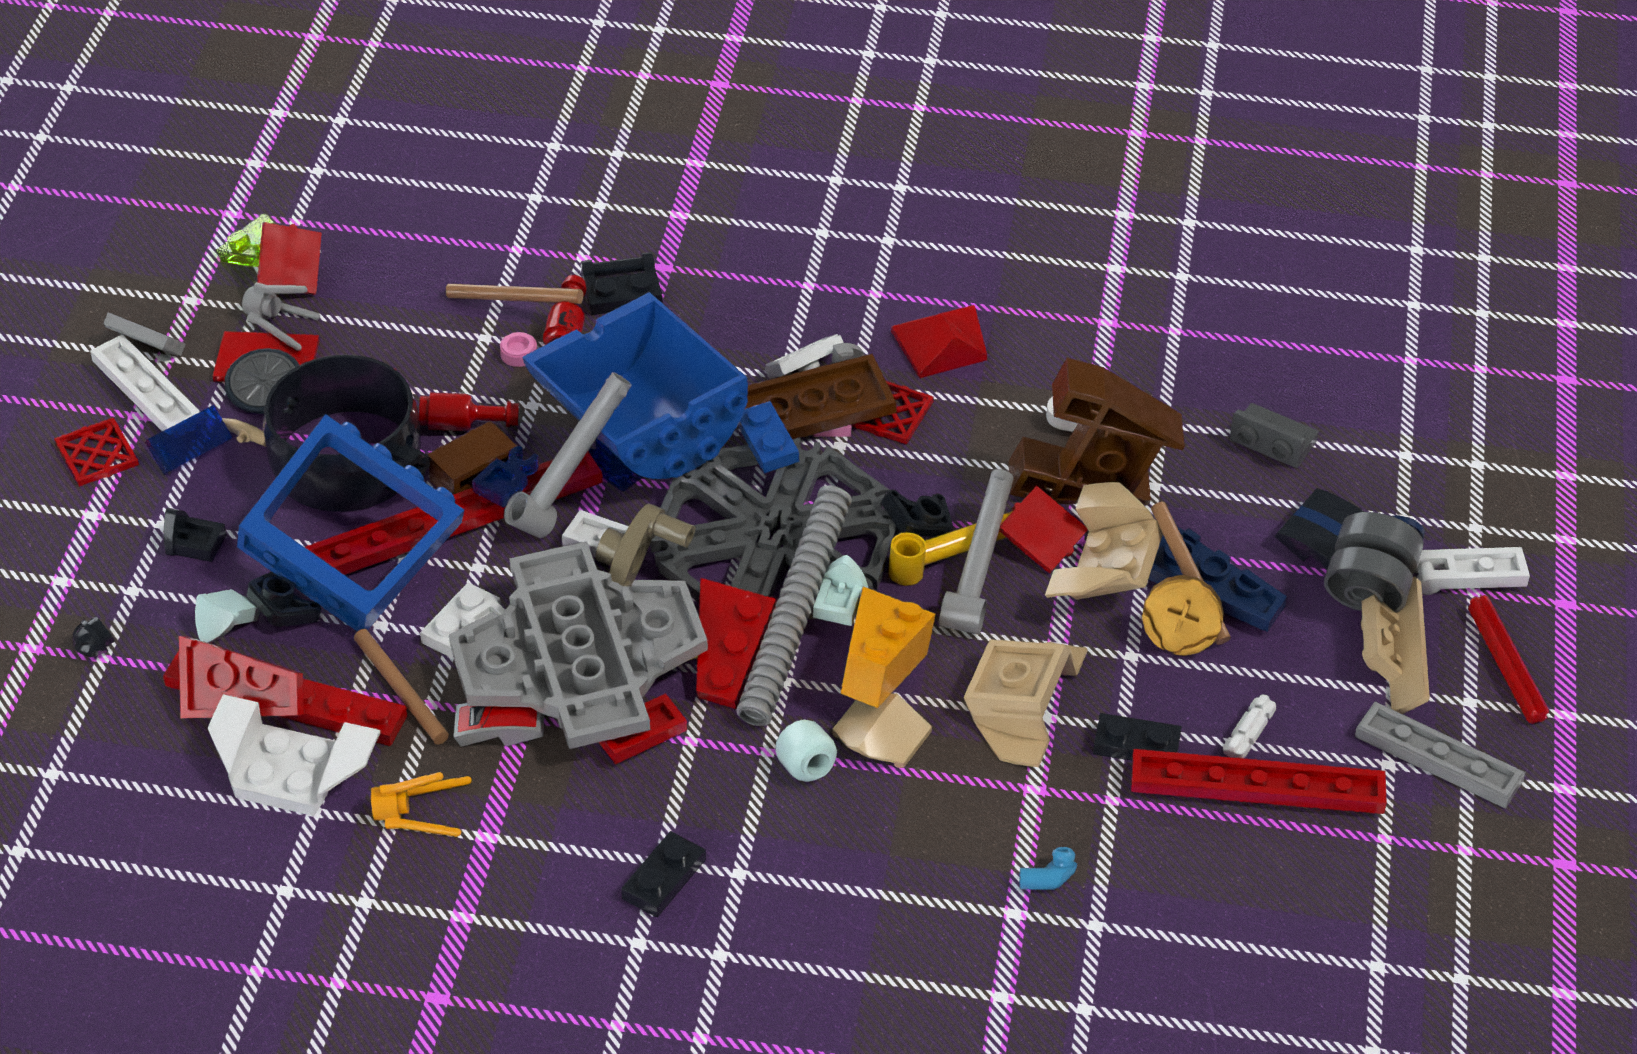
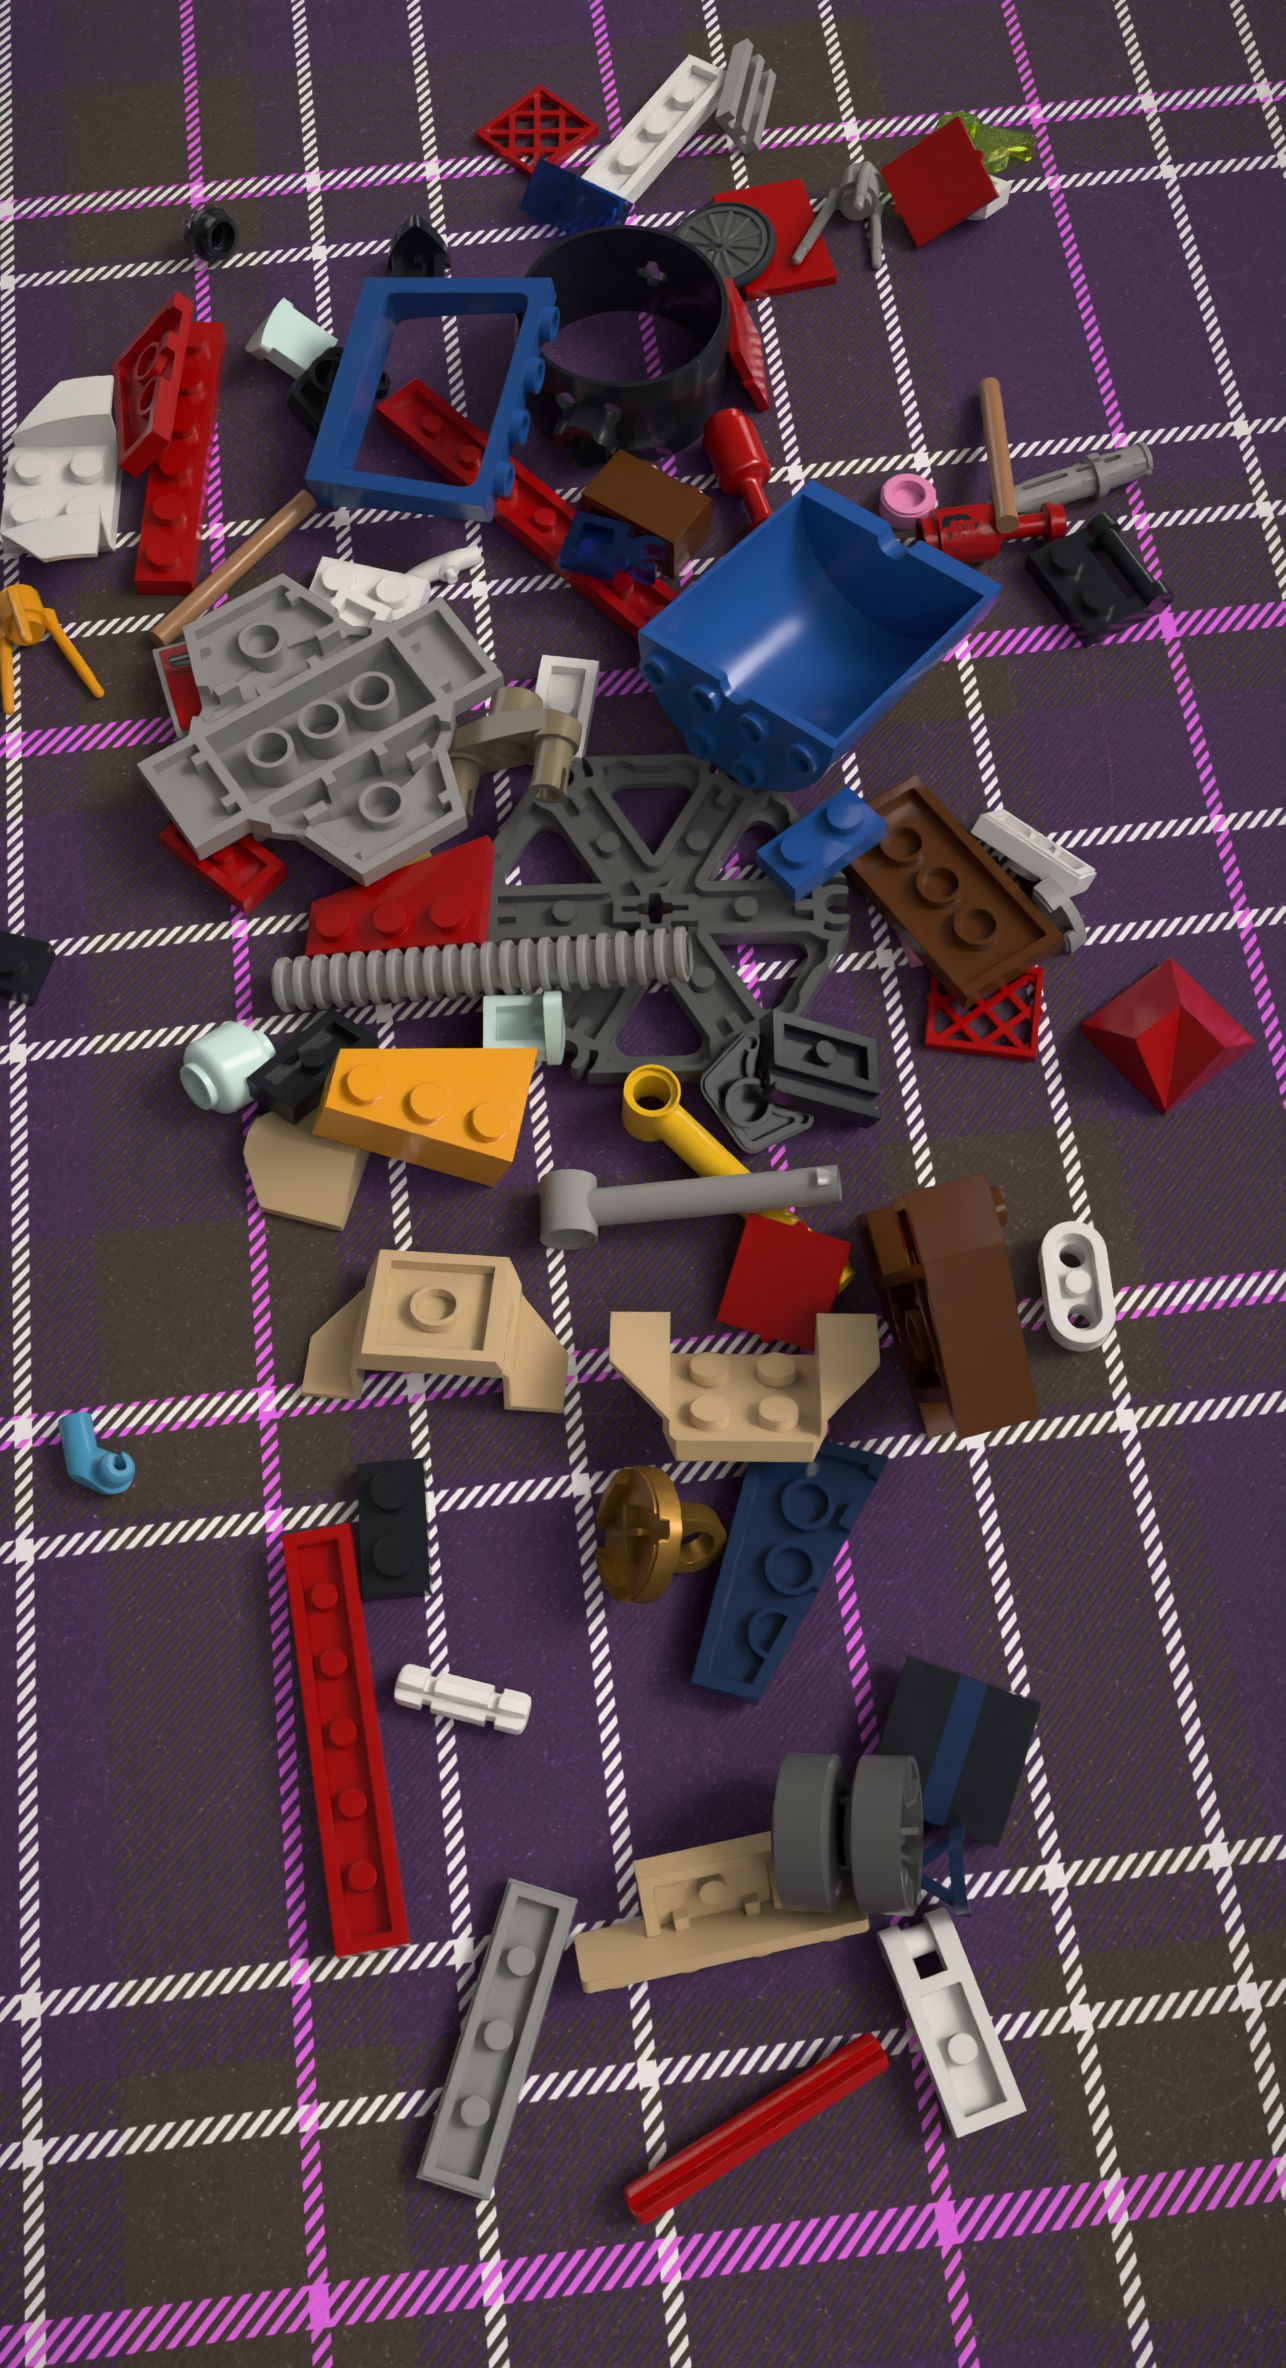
camera: 75 degrees right, 20 degrees up
(455, 576) = (448, 565): none -> white helmet
(535, 511) = (573, 607): light grey piece -> none
(547, 263) = (1089, 478): none -> light grey pin
(819, 702) = (296, 1075): none -> black plate
(913, 475) = (819, 1069): none -> black plate
(1181, 553) = (746, 1523): medium nougat bar -> none
(1273, 434) = (1162, 1608): dark grey bracket -> none

